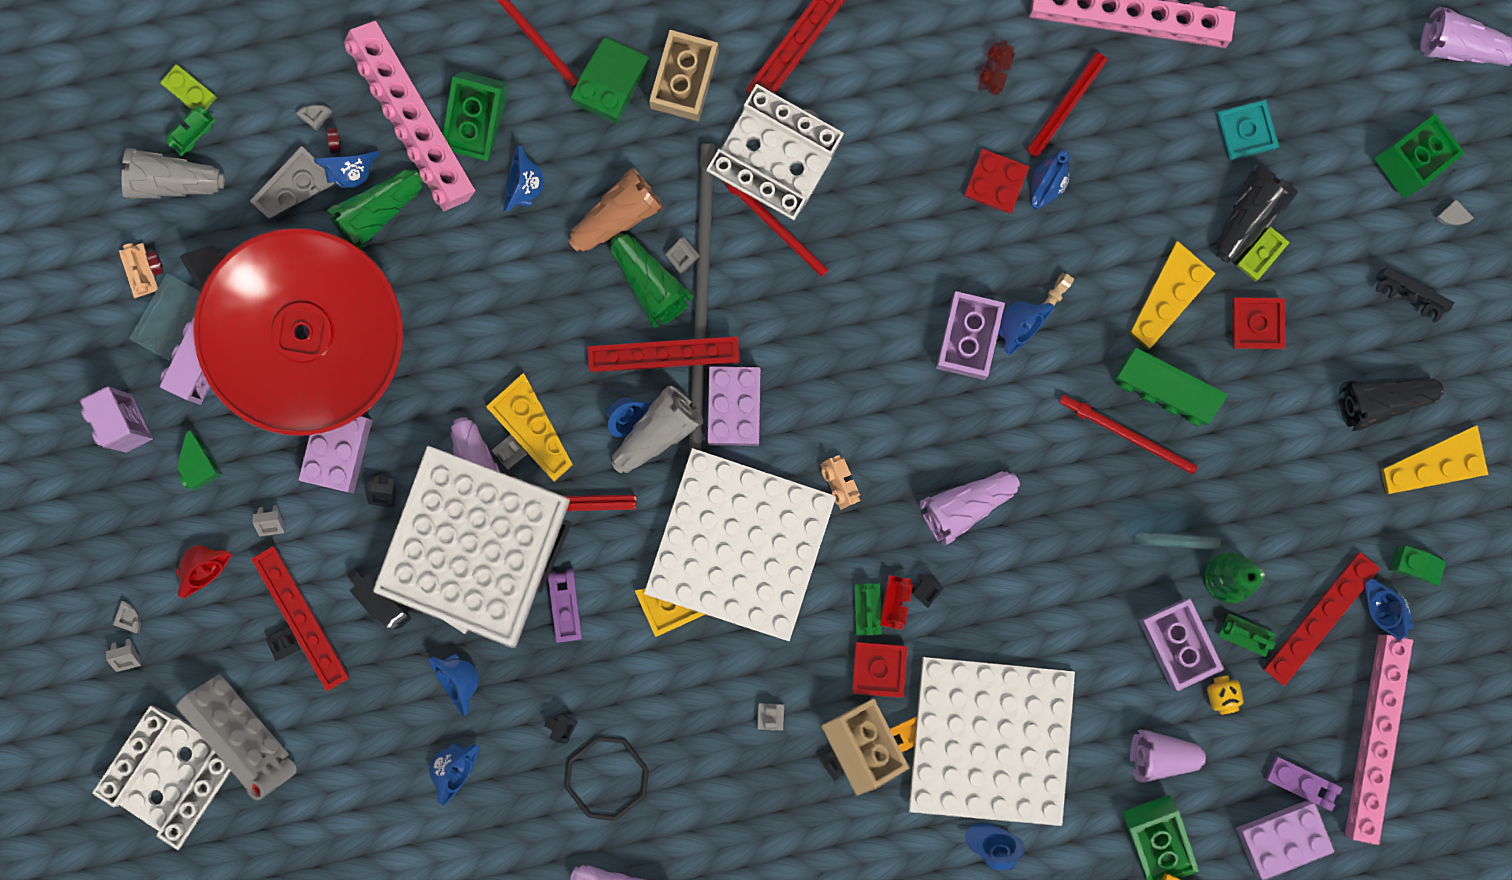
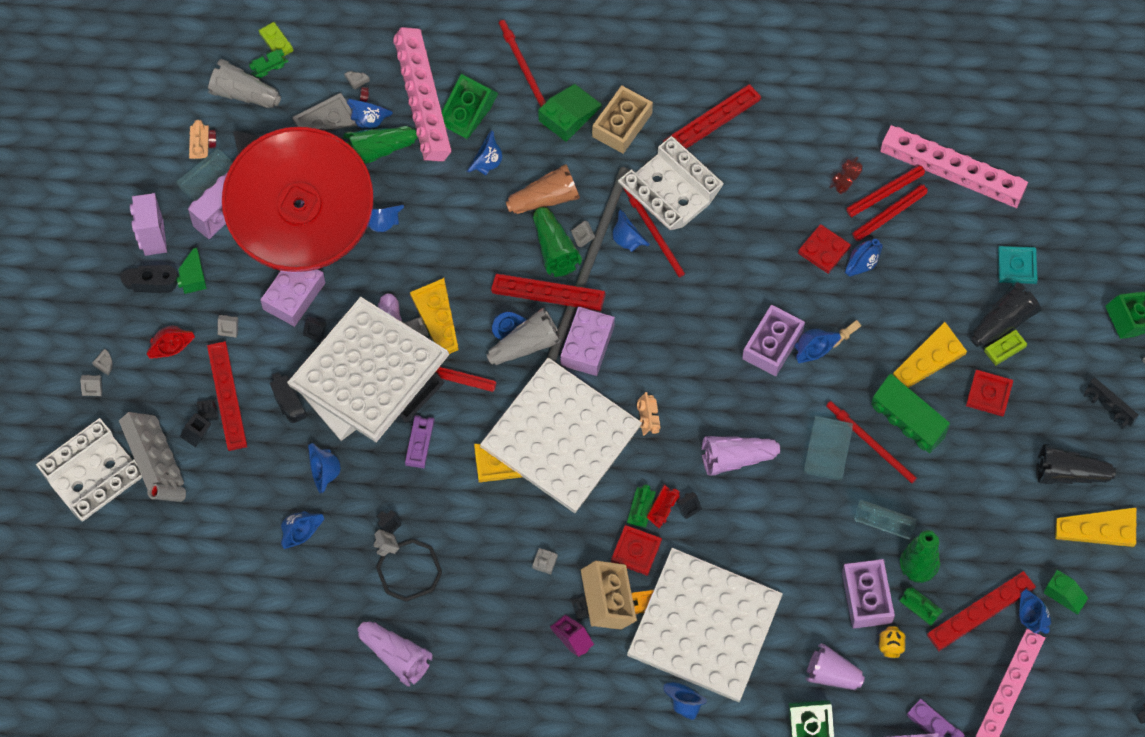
camera: 15 degrees right, 20 degrees down
(126, 492) = (135, 279): none -> black piece
(277, 681) = (195, 430): none -> black brick
(419, 309) = (384, 218): none -> blue hat
(567, 756) = (385, 542): none -> light grey tile
(739, 239) = (626, 234): none -> blue hat
(834, 806) = (572, 635): none -> magenta slope
(1052, 74) = (885, 191): none -> red axle
(1078, 460) = (828, 448): none -> clear light blue tile

